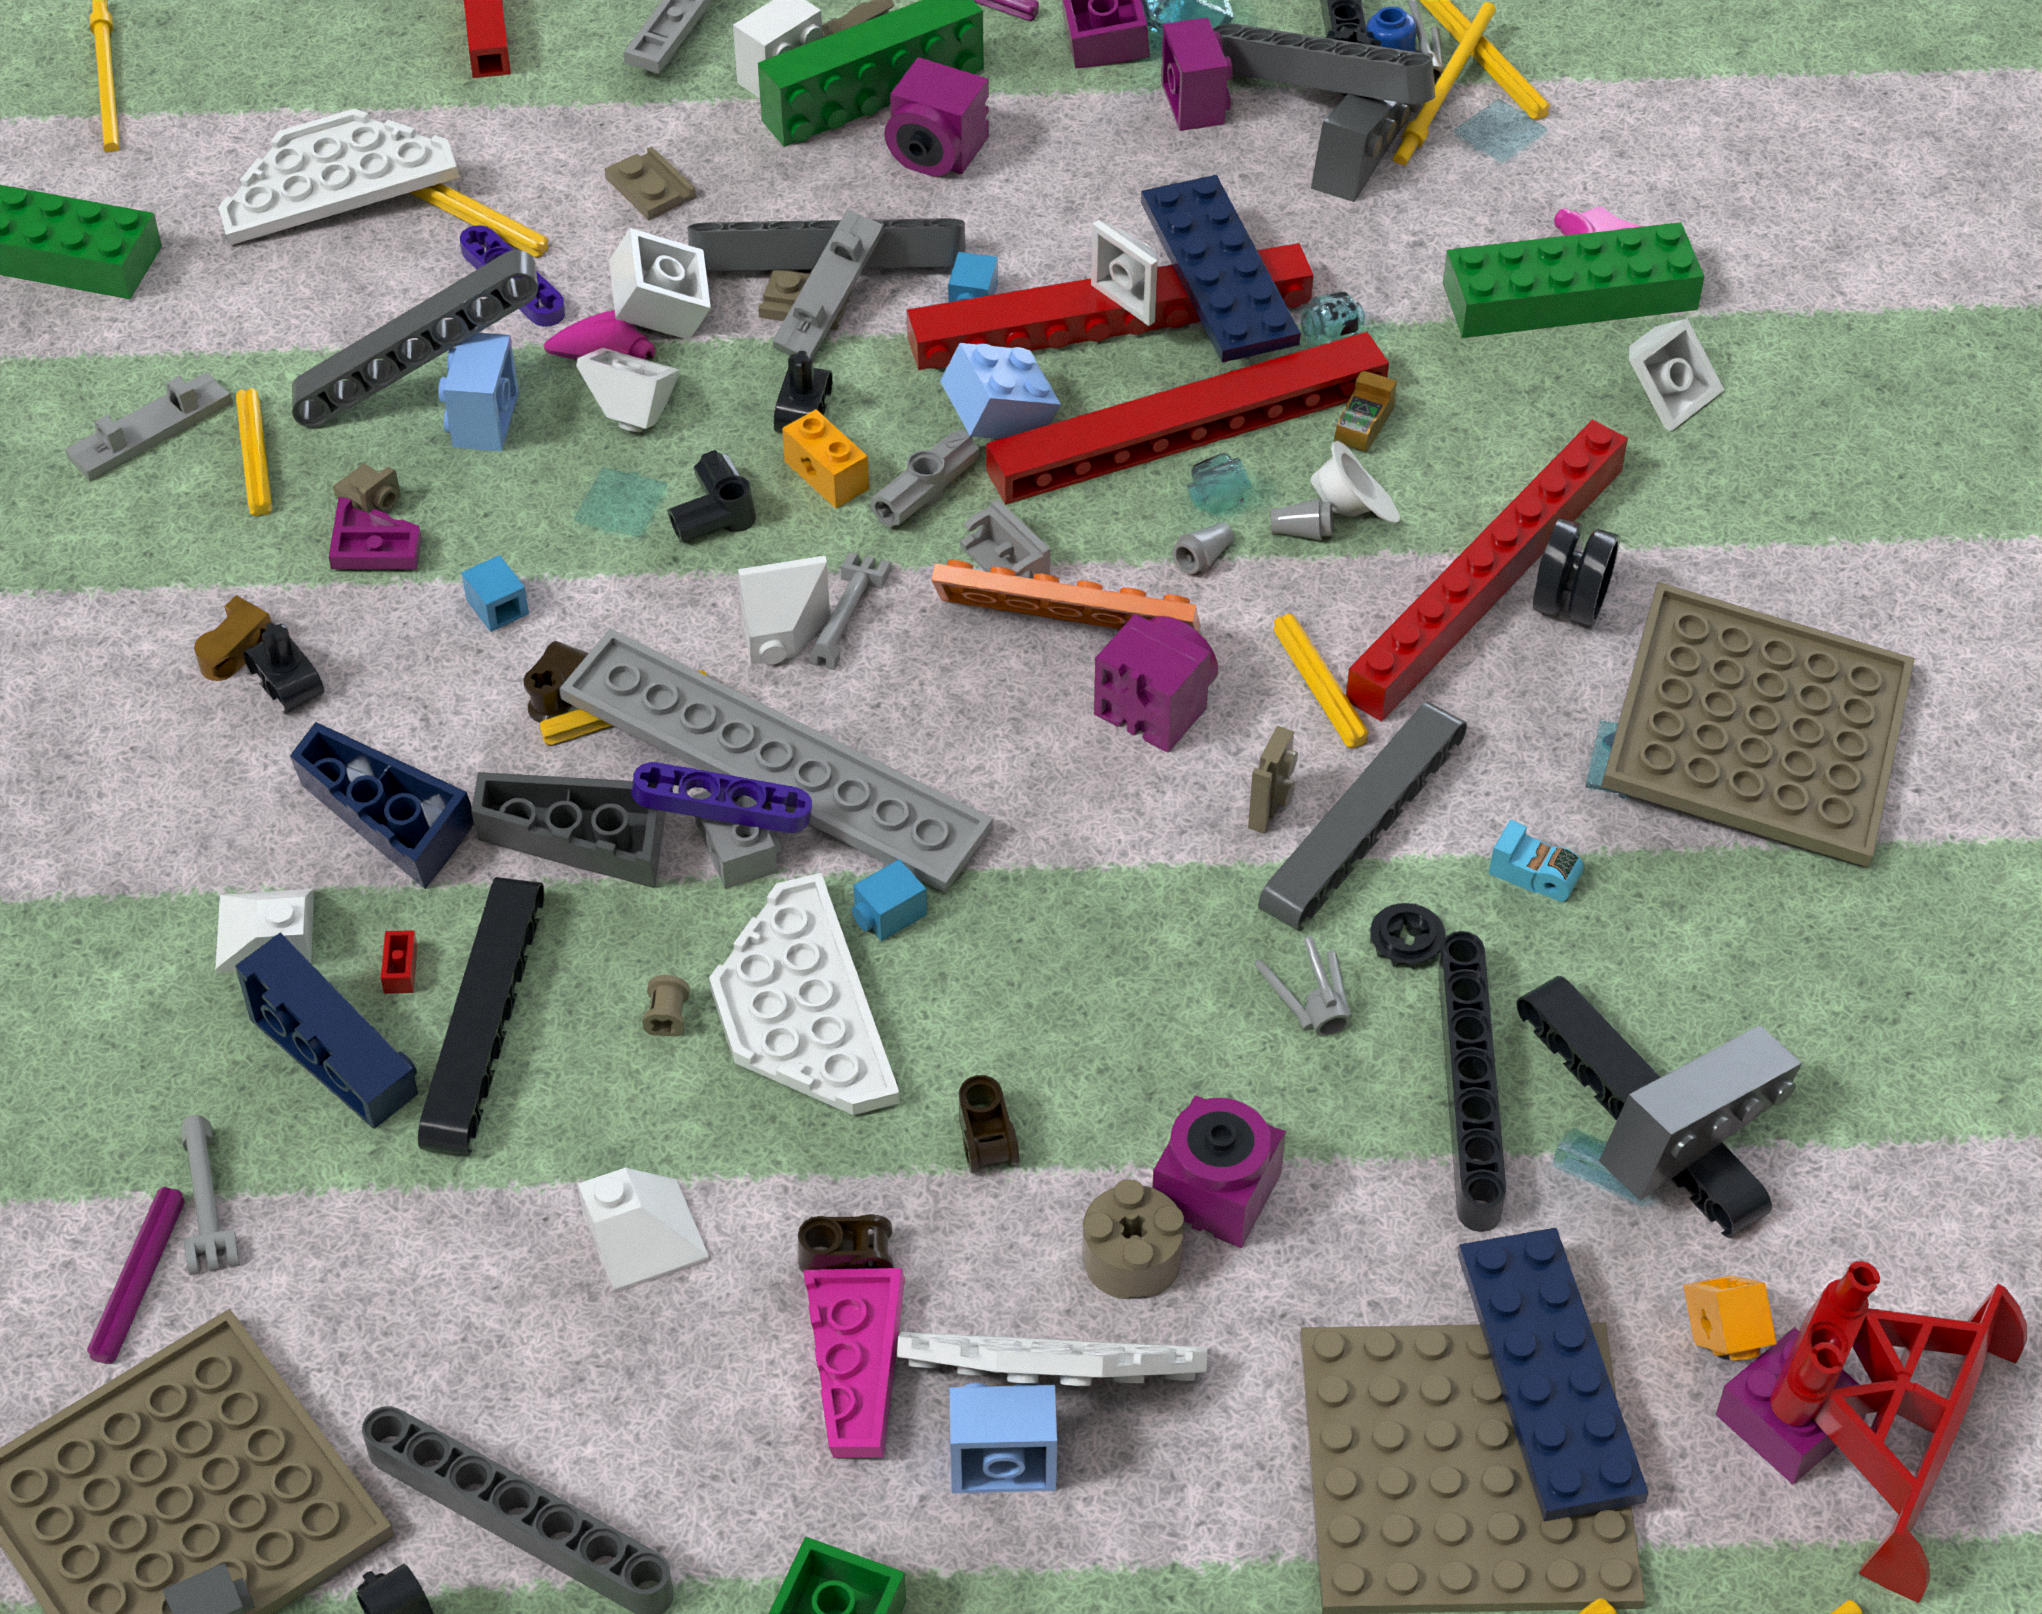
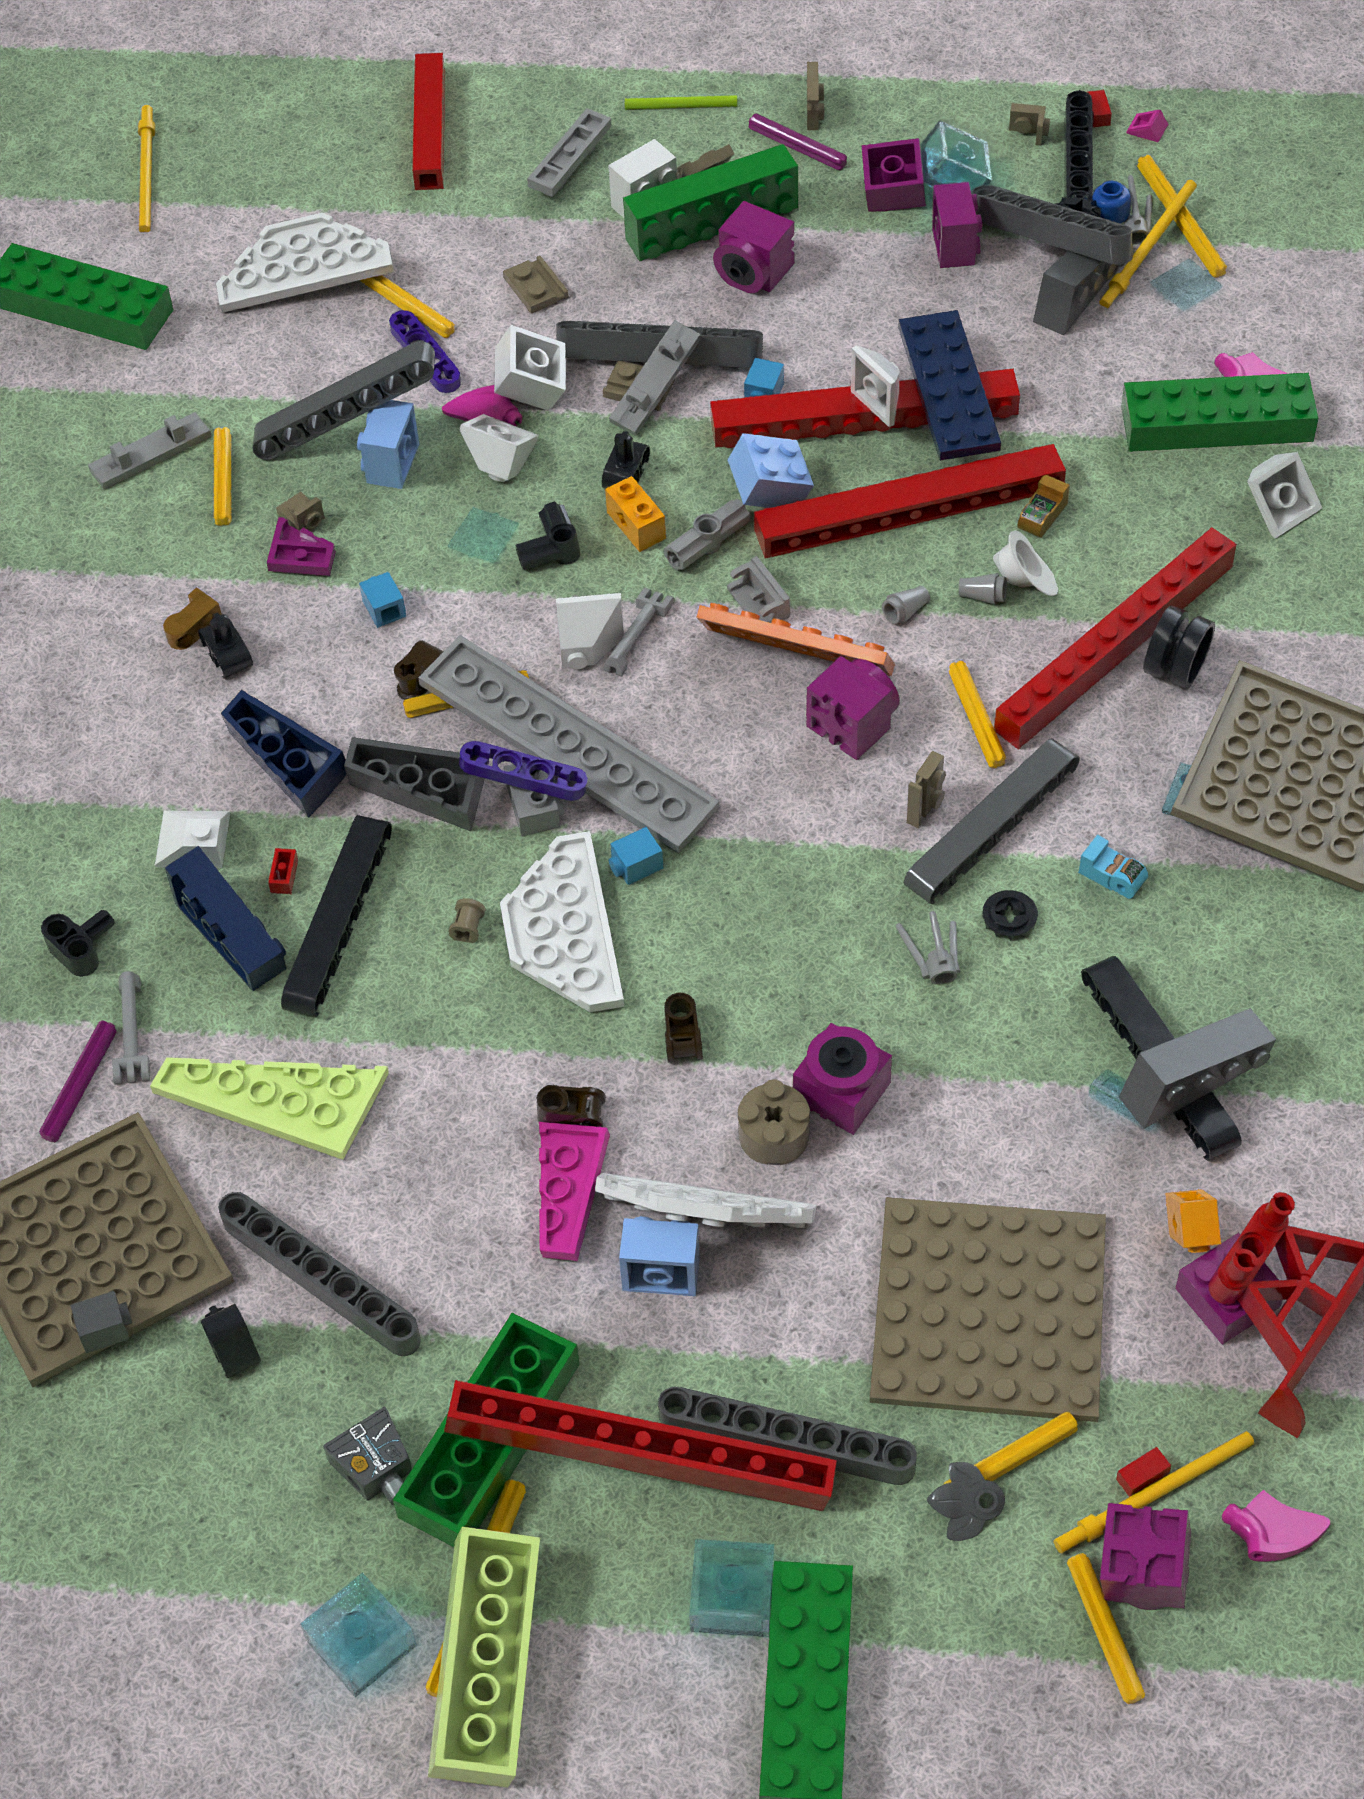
camera: 10 degrees right, 5 degrees up
(110, 1084) = (75, 940): none -> black beam
(432, 1272) = (285, 1099): none -> yellowish green wing
(640, 1226) = (429, 1079): white slope -> none
(1218, 484) = (924, 555): clear light blue head -> none
(1331, 318) = (1029, 430): clear light blue head -> none
(1465, 1017) = (1037, 1040): black beam -> none
(1552, 1375) = (1058, 1248): dark blue plate -> none

